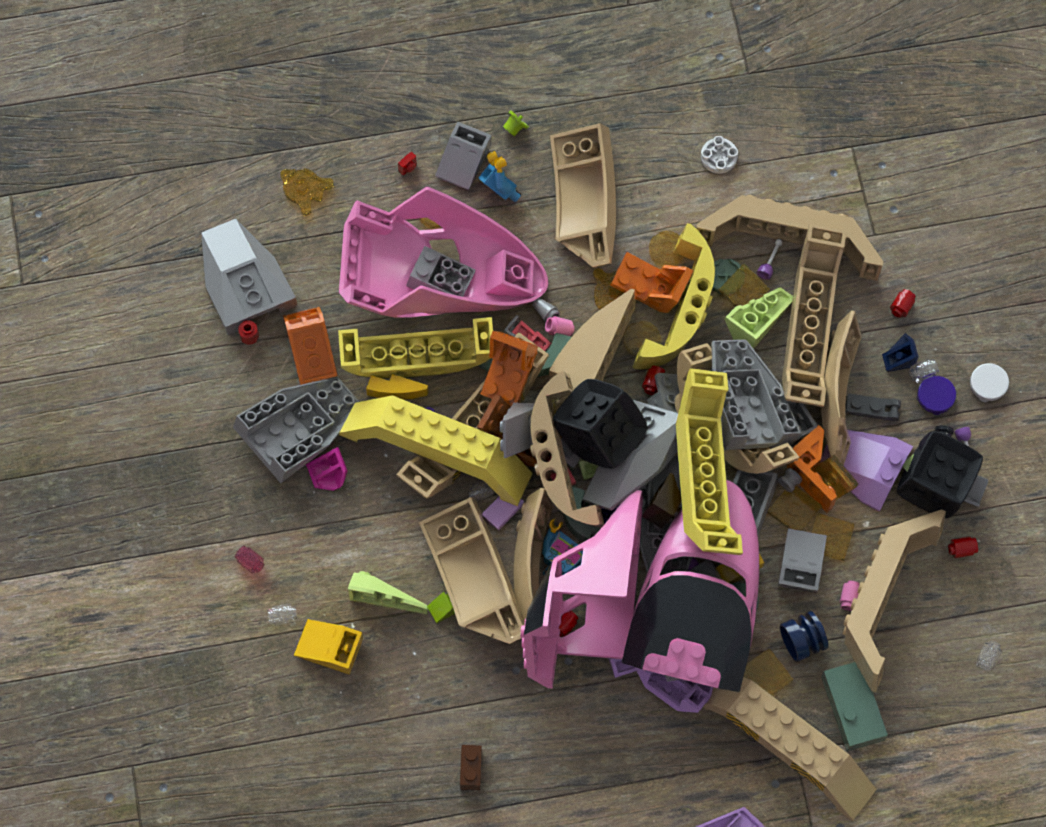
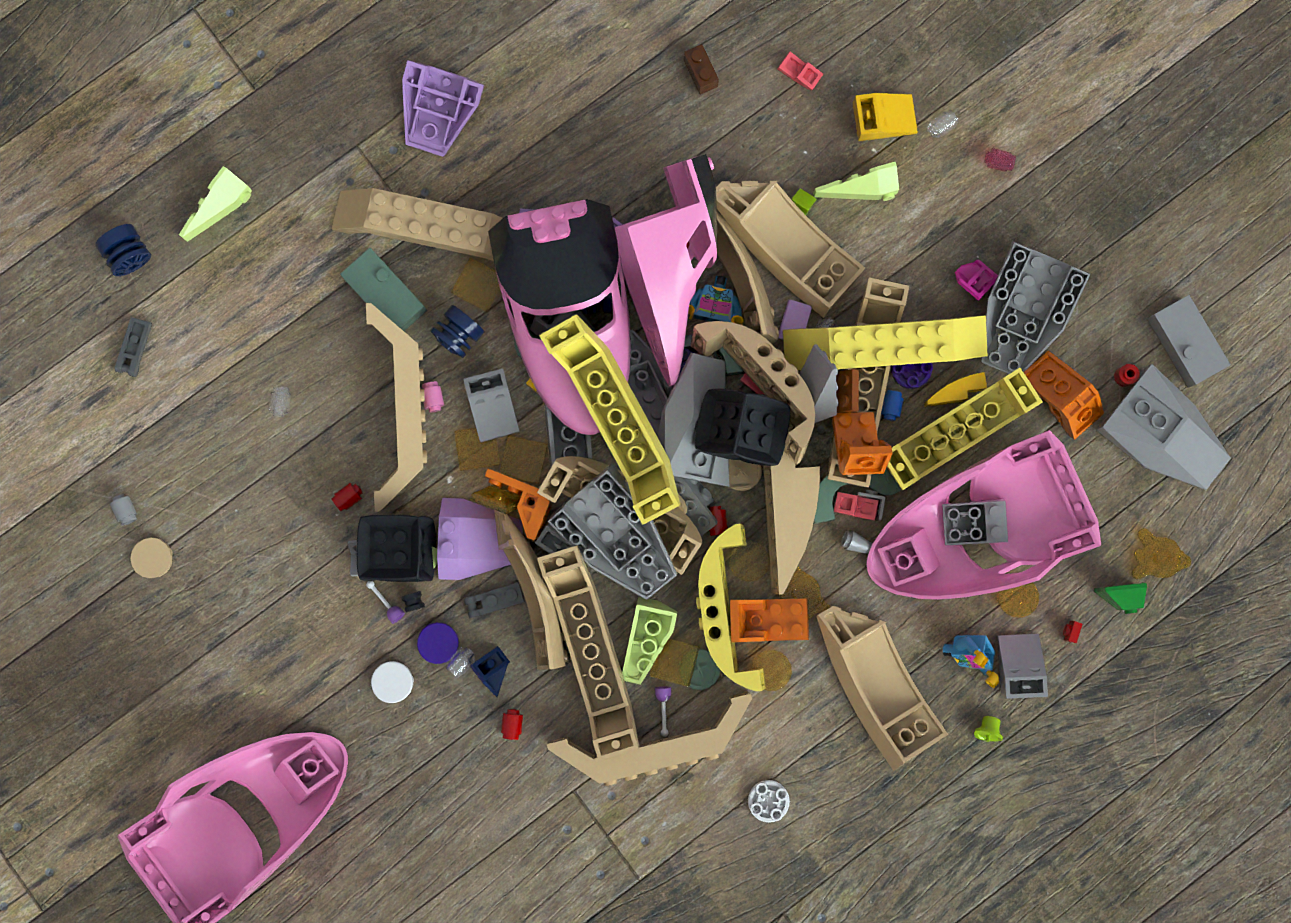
camera: 155 degrees right, 15 degrees up
(180, 335) = (1188, 341): none -> light grey brick
(351, 170) = (1124, 597): none -> green slope
(381, 725) = (799, 71): none -> coral slope
(456, 401) = (892, 405): none -> blue brick
(559, 325) = (833, 529): bright pink brick -> none
(664, 504) = (645, 386): dark brown slope -> none
(789, 480) = (537, 478): light grey wheel -> none

